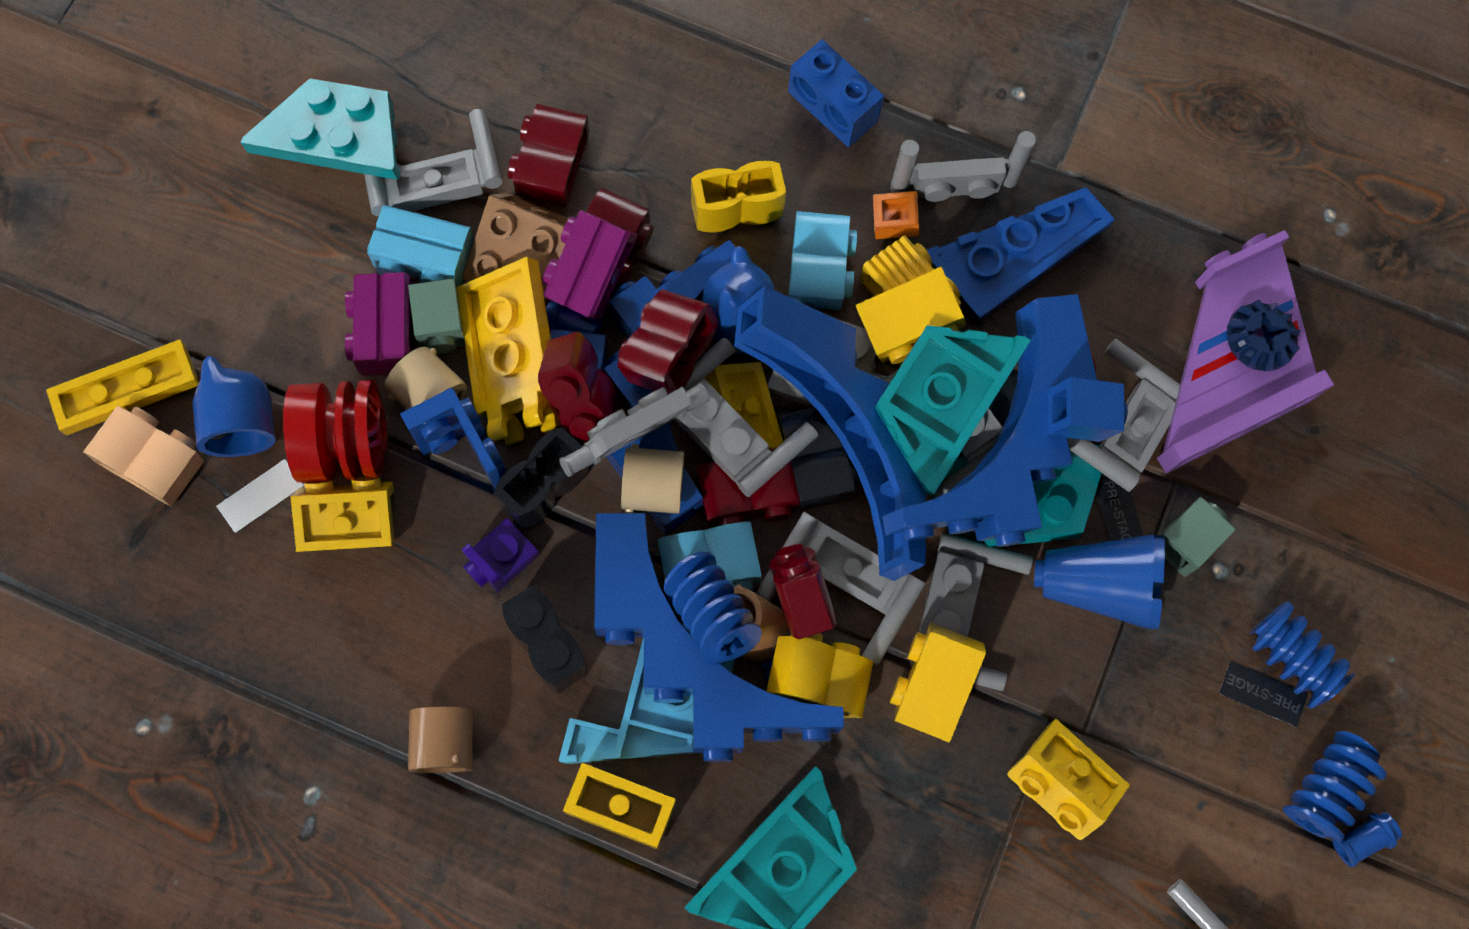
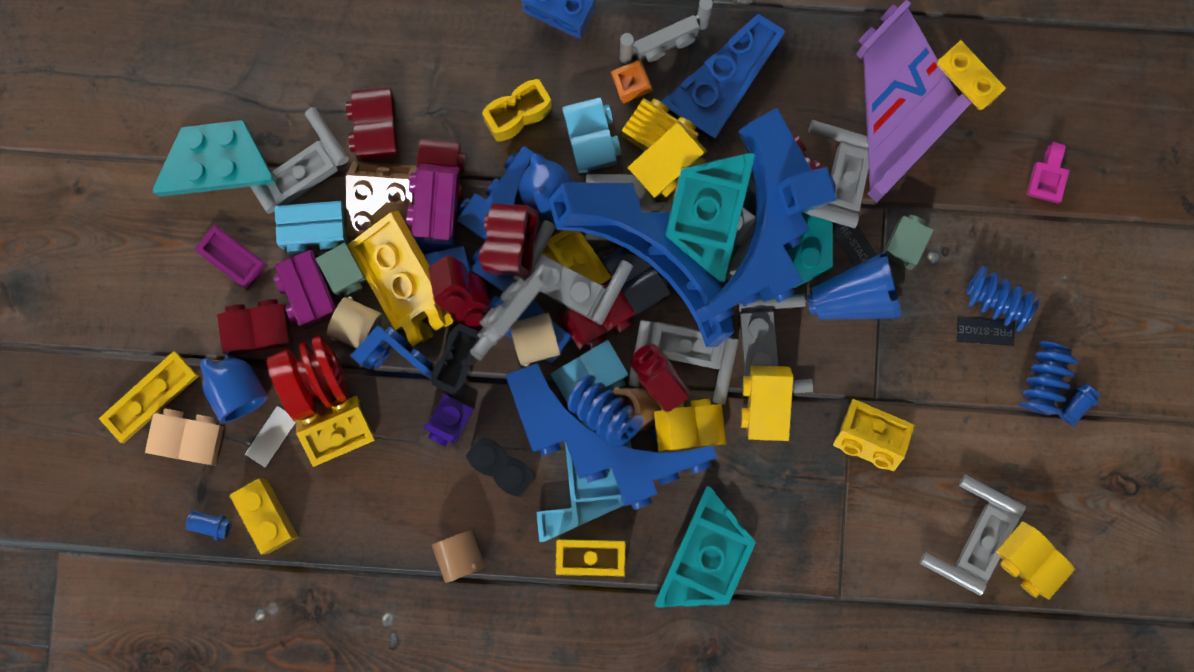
camera: 10 degrees left, 10 degrees up
(124, 577) = (209, 525): none -> blue pin
(202, 592) = (263, 516): none -> yellow brick
(294, 348) = (254, 328): none -> dark red brick
(304, 253) = (230, 257): none -> magenta tile
(1253, 349) = (909, 96): dark blue gear -> none
(1343, 352) = (970, 75): none -> yellow bracket
(1406, 519) = (1048, 178): none -> dark pink plate

